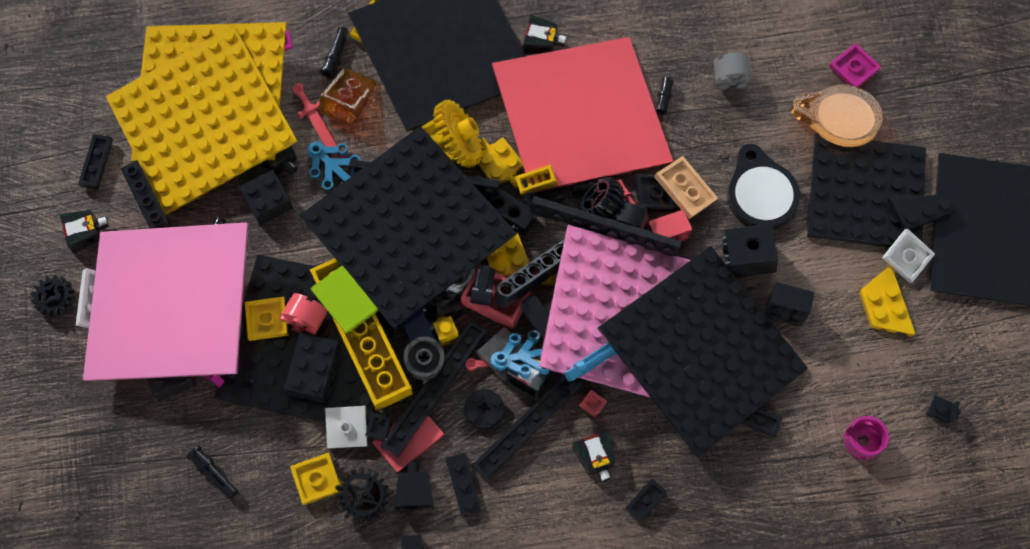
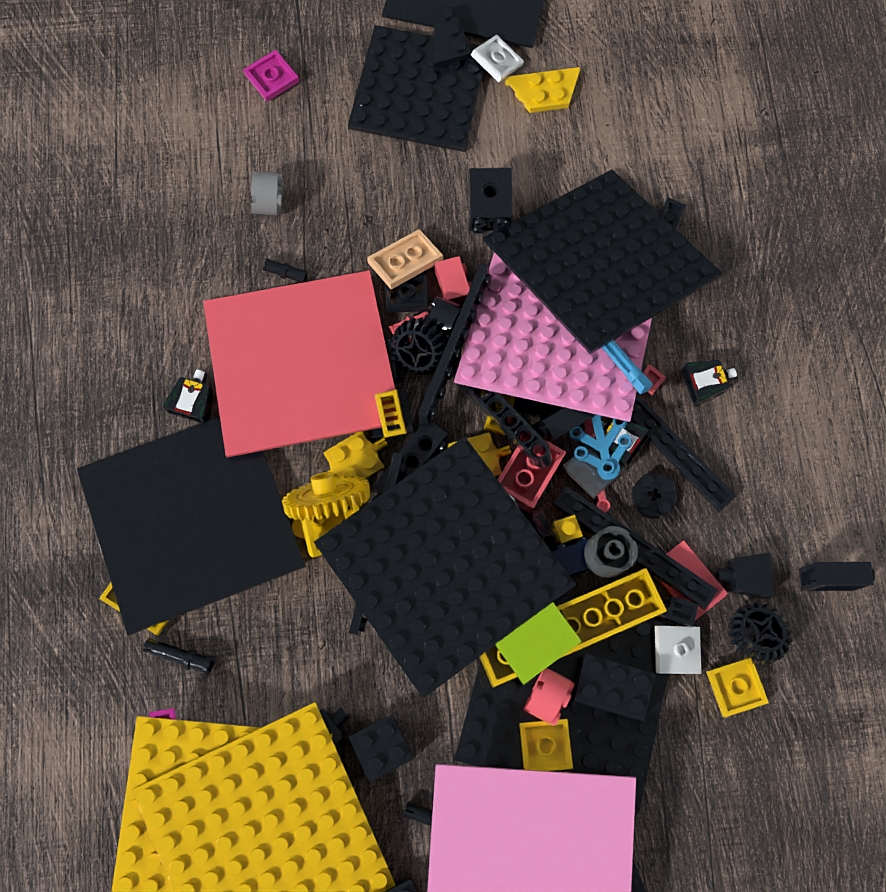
camera: 90 degrees left, 5 degrees up
(206, 466) = (723, 821): black pin -> none
(312, 113) = (281, 679): coral sword -> none
(331, 164) = (339, 663): dark azure plant -> none
(346, 96) = (246, 640): clear orange slope -> none
(463, 484) = (738, 523): black plate -> none
(483, 290) = (532, 481): black piece -> none
(646, 500) = (753, 336): black plate -> none
(762, 190) = (411, 186): piece -> none
(789, 304) = (550, 172): black brick -> none
(840, 114) = (330, 95): clear orange piece -> none
(873, 430) = (693, 116): dark pink piece -> none
(943, 409) = (657, 55): black bracket -> none

